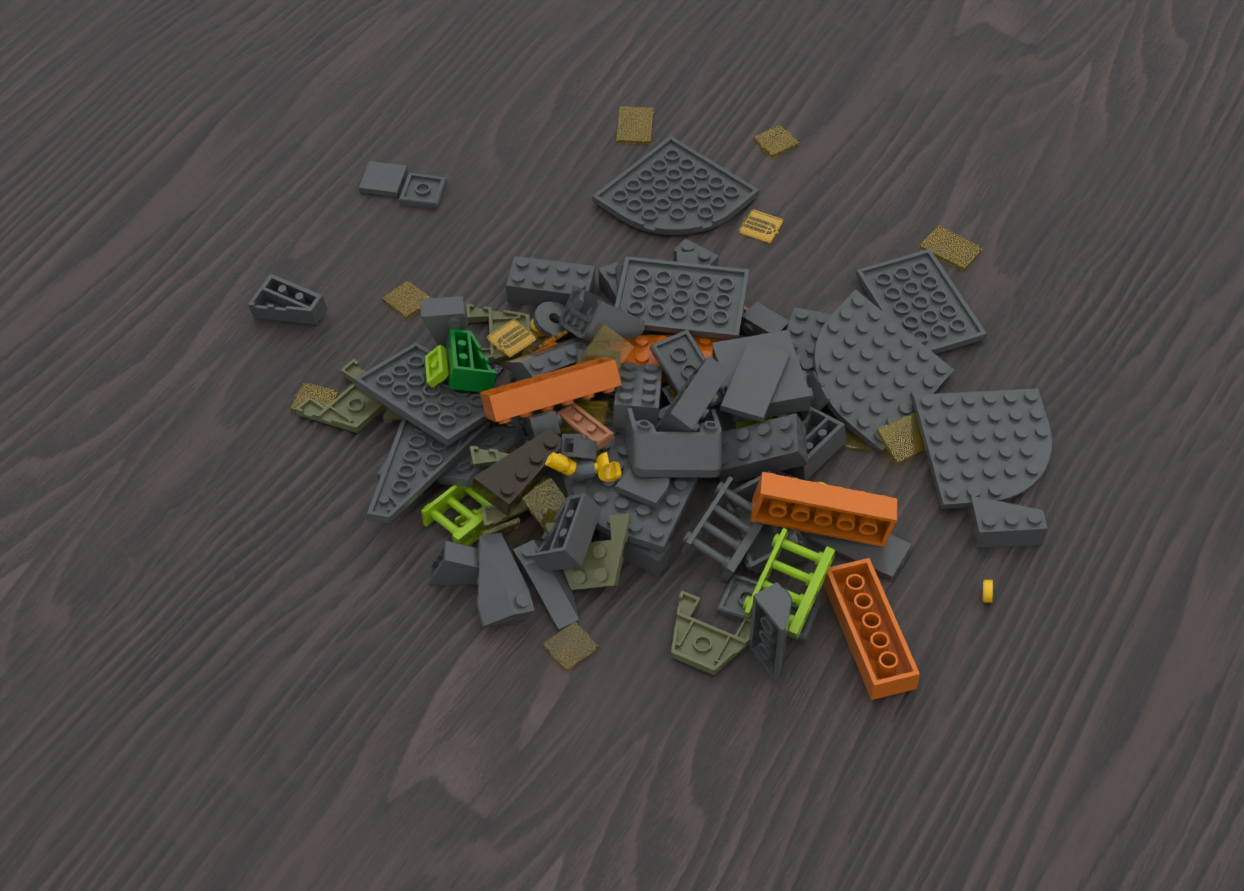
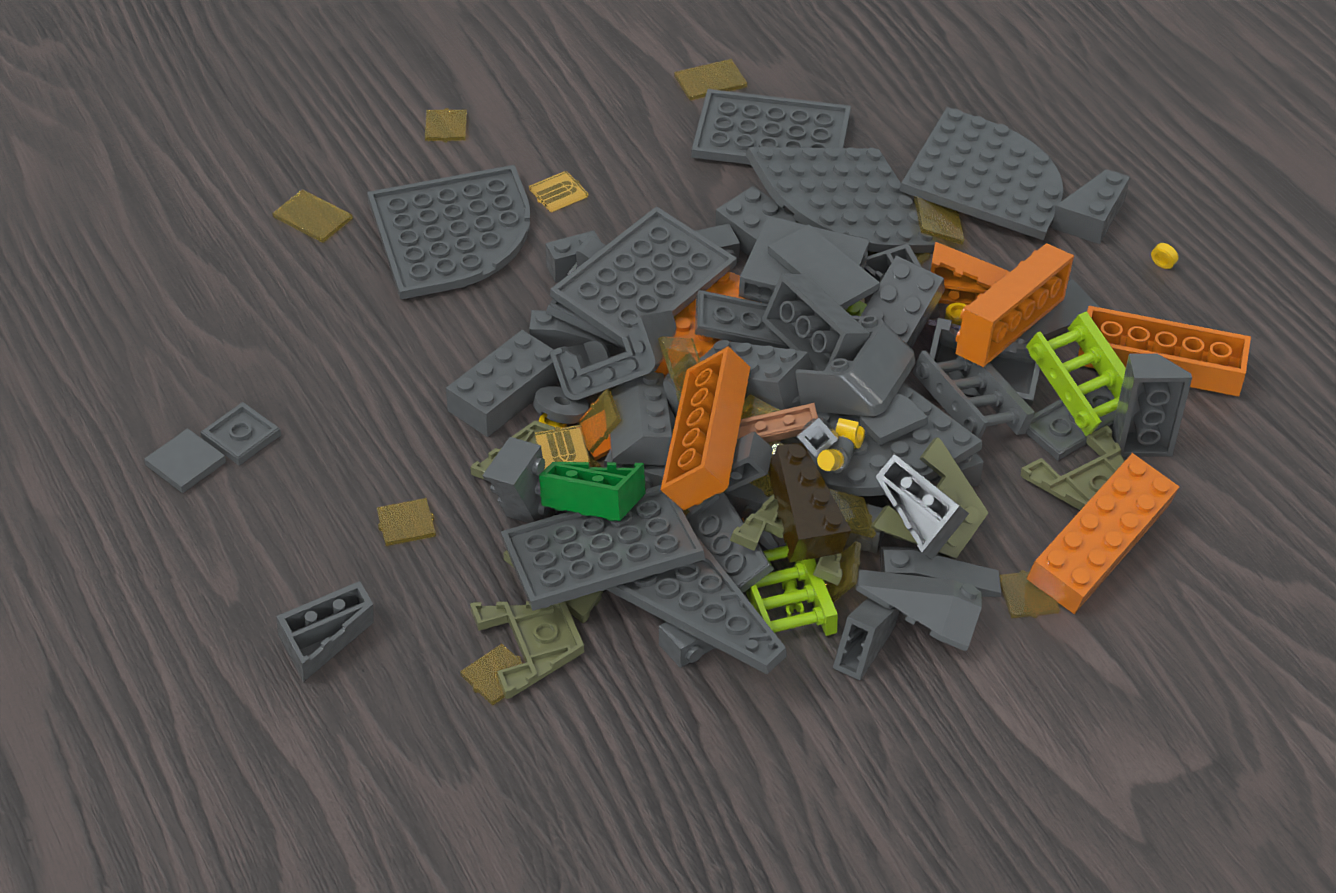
camera: 60 degrees left, 5 degrees down
(436, 366) = (574, 518): lime plate -> none
(644, 661) = (1102, 533): none -> orange brick
(843, 466) = (963, 274): none -> orange wedge

